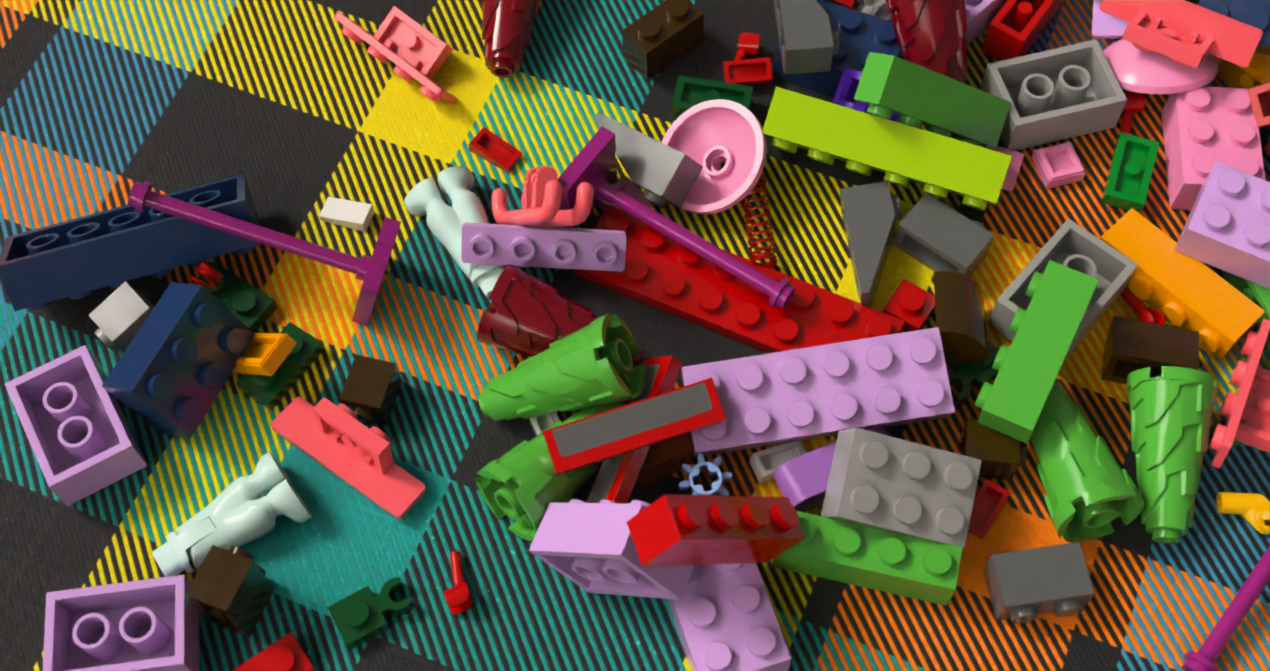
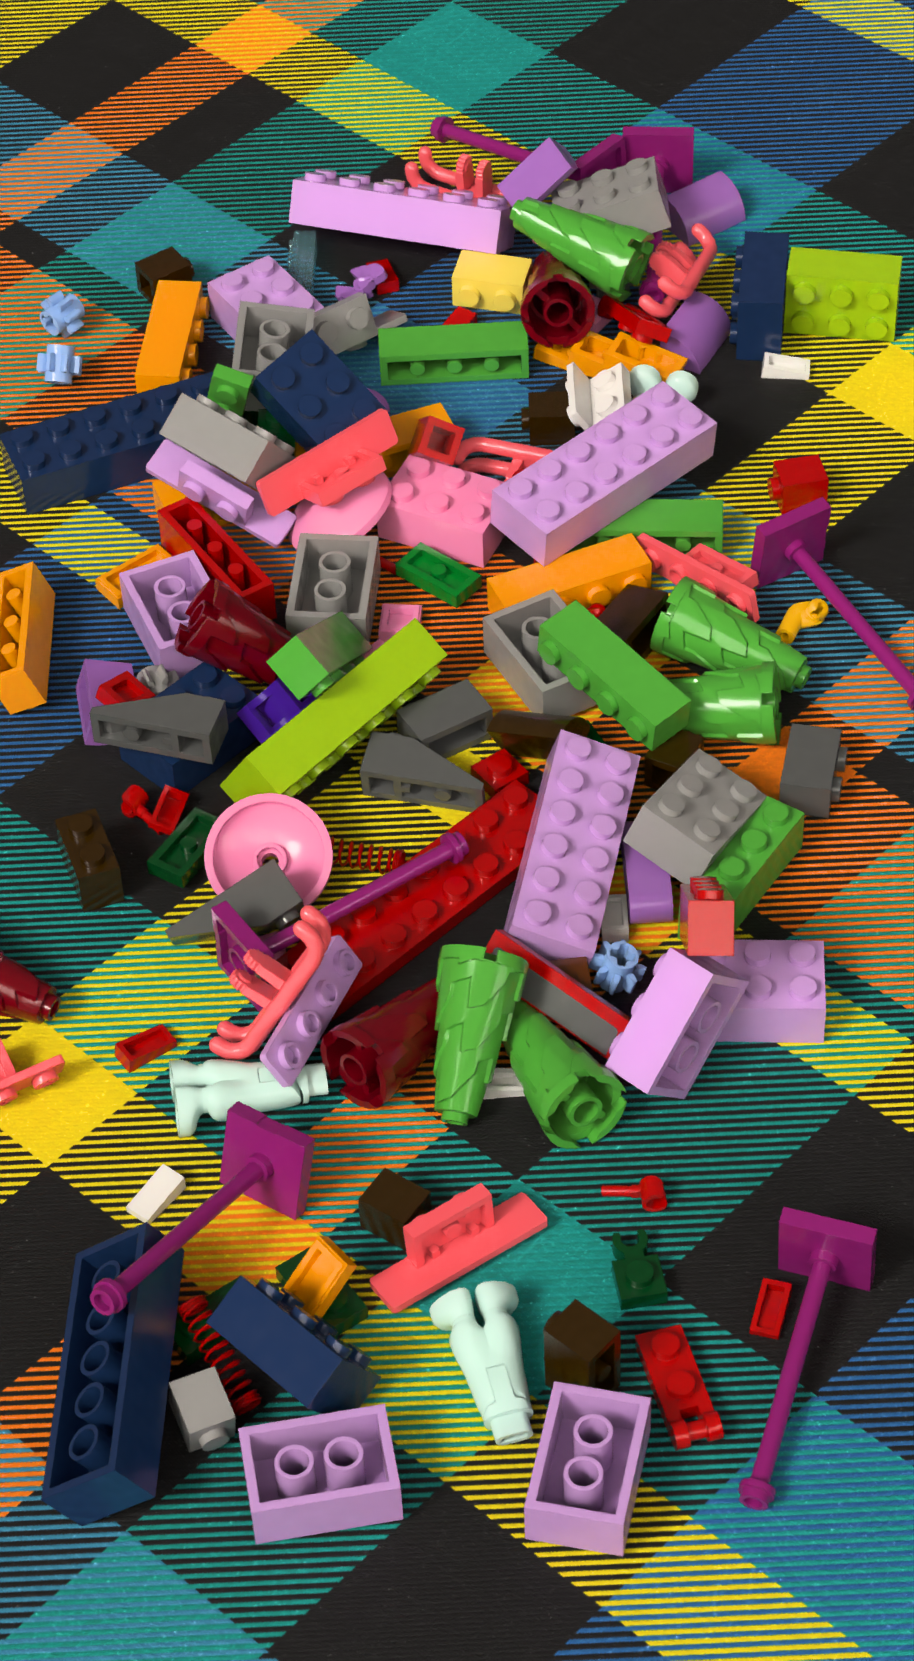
camera: 70 degrees left, 15 degrees down
(633, 426) = (561, 973): tile -> none

